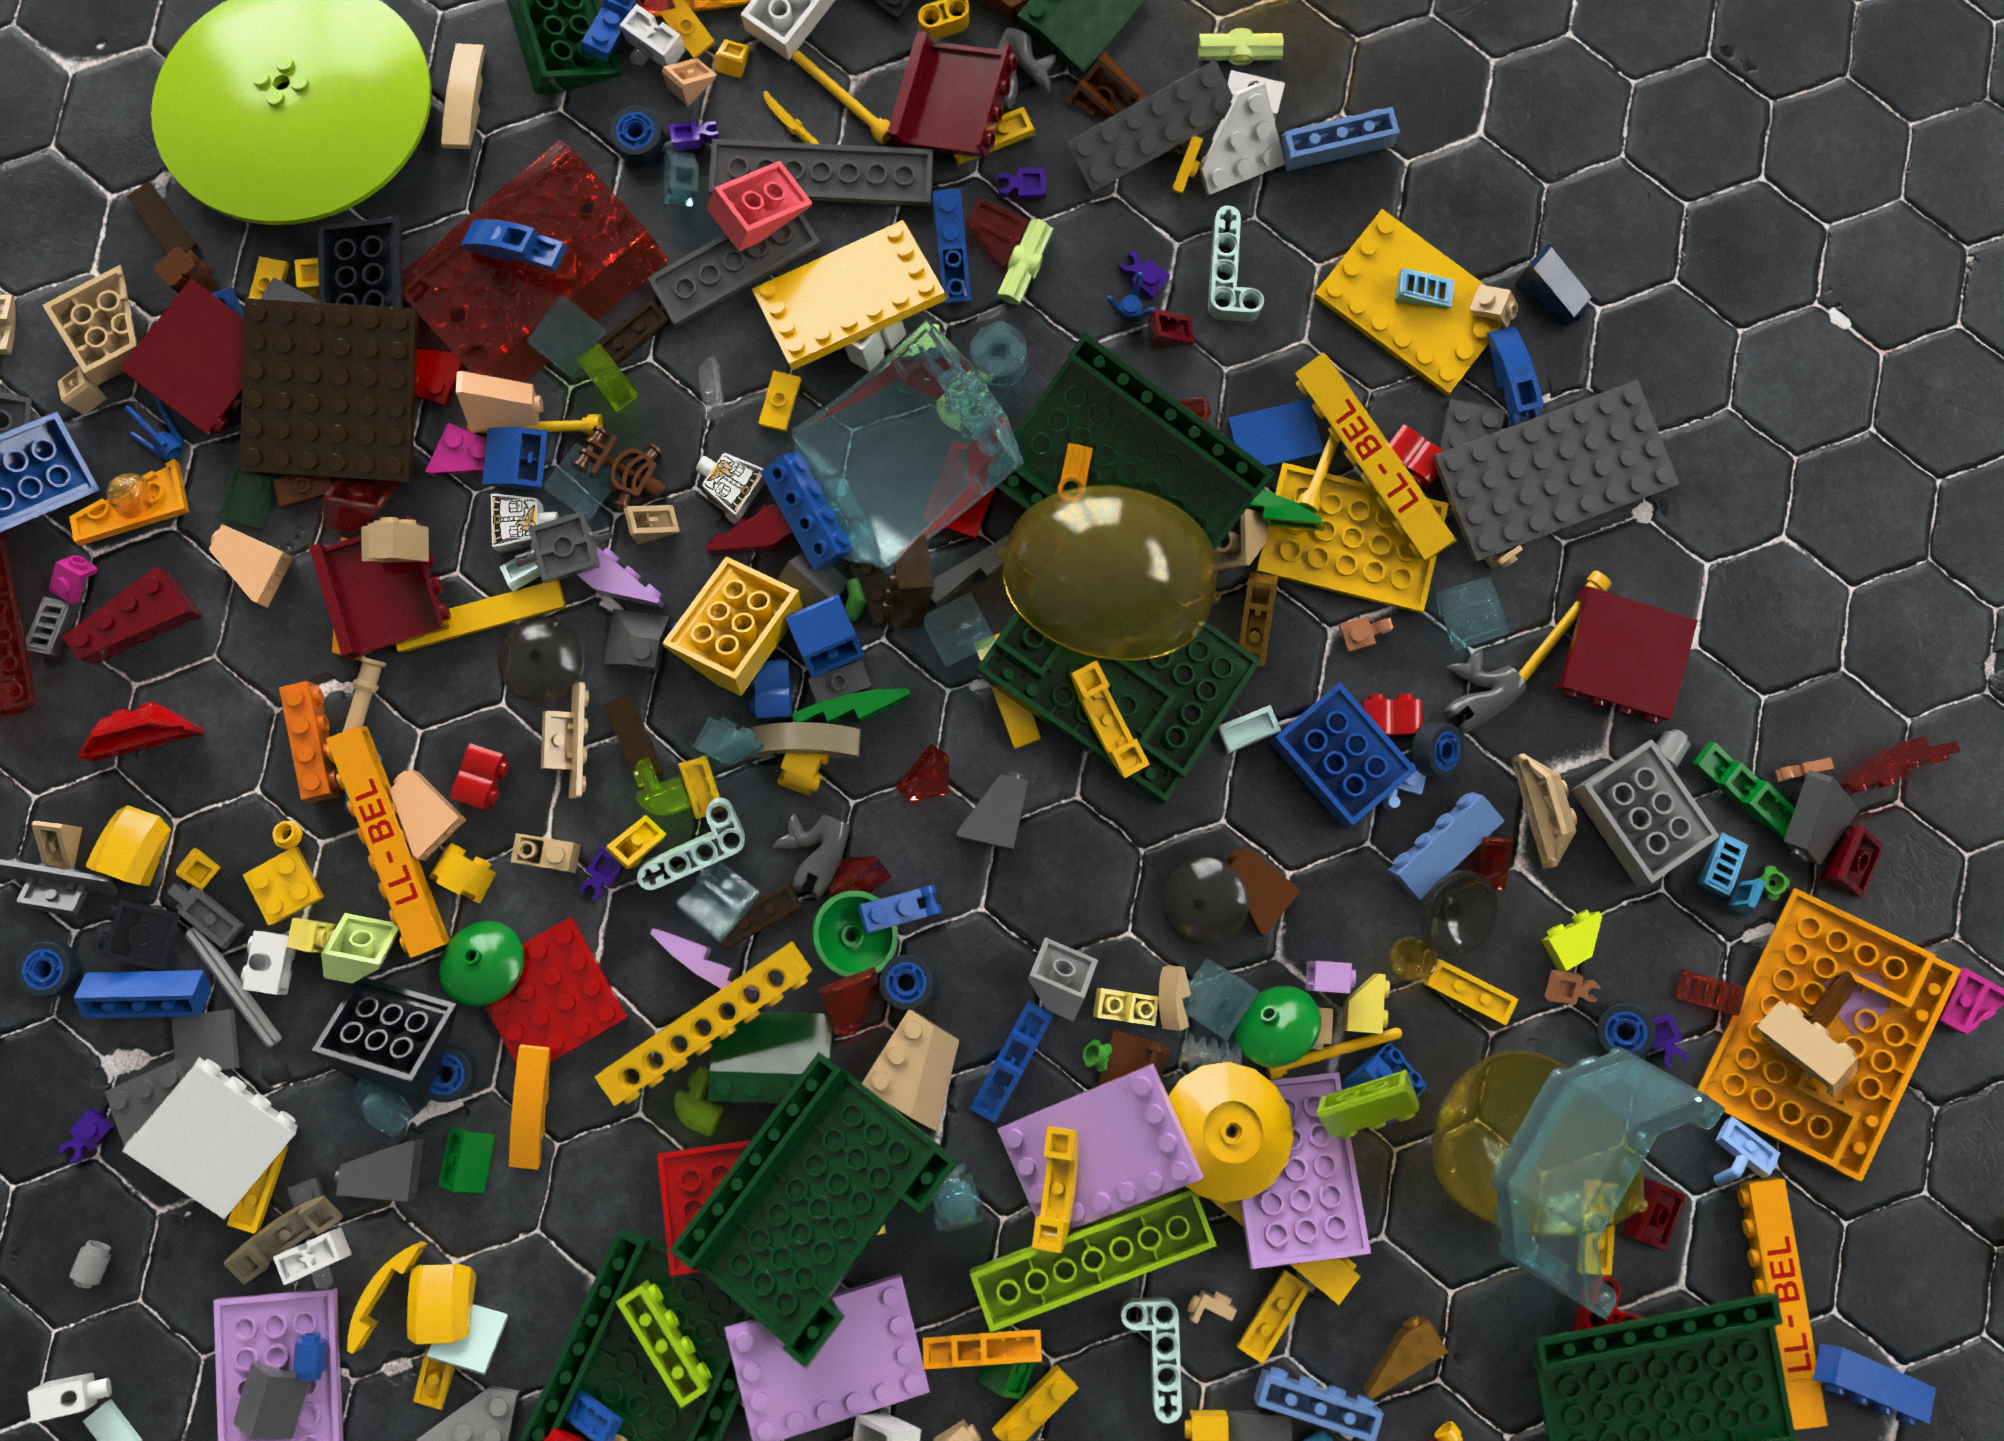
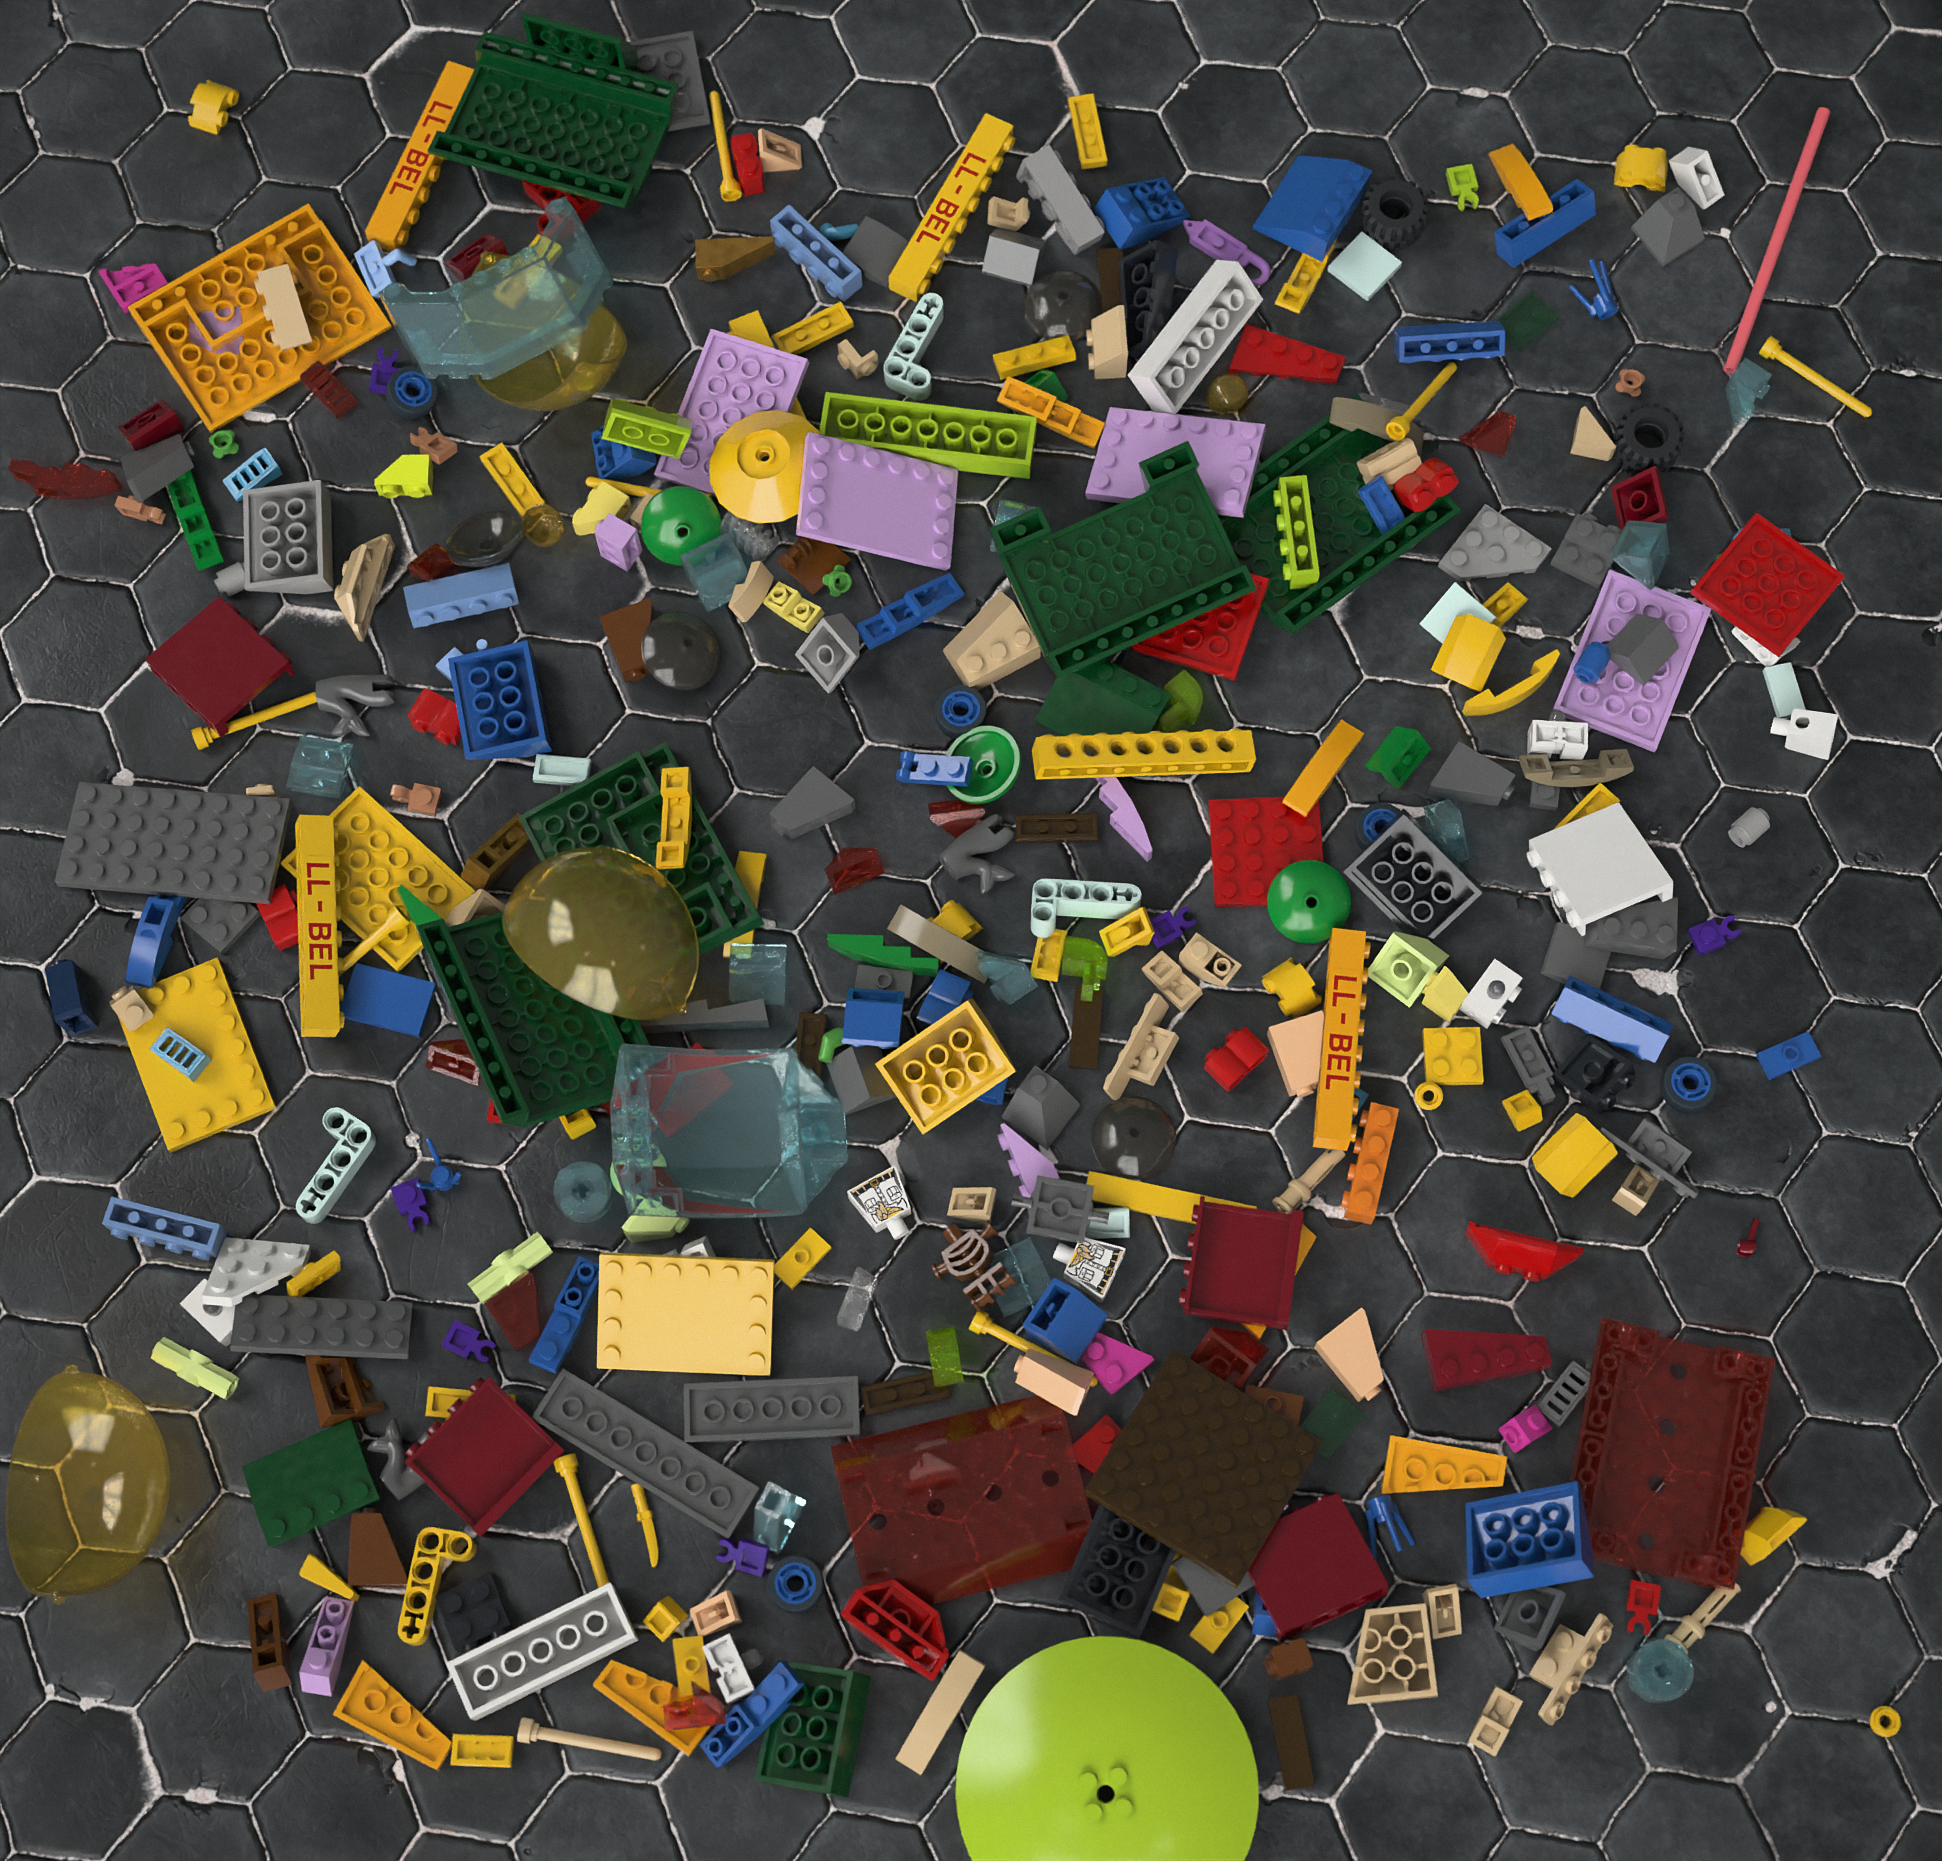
camera: 150 degrees left, 10 degrees down
(129, 495) = (1435, 1472): clear yellow hair -> none
(233, 987) = (1533, 992): light grey axle -> none
(394, 541) = (1207, 1280): tan brick -> none
(514, 242) = (964, 1501): blue slope -> none
(525, 135) = (899, 1625): none -> red wedge
(565, 334) = (962, 1413): clear light blue slope -> none
(575, 822) = (1172, 981): none -> tan slope
(718, 900) = (1083, 852): clear light blue slope -> none
(757, 204) = (720, 1441): coral slope -> none
(760, 533) = (881, 1143): dark red slope -> none
(806, 510) = (830, 1134): blue brick -> none
(850, 1000) = (1015, 713): clear red slope -> none
(909, 587) = (775, 1014): dark brown slope -> none
(1058, 1189) = (927, 490): yellow slope -> none
(1076, 465) = (579, 1029): light orange piece -> none
(1169, 330) = (414, 1137): dark red slope -> none
(1438, 749) = (420, 669): black wheel -> none
(1746, 896) = (251, 438): dark azure slope -> none
(1832, 999) = (241, 334): reddish brown slope -> none
(1874, 1385) = (396, 69): blue brick -> none

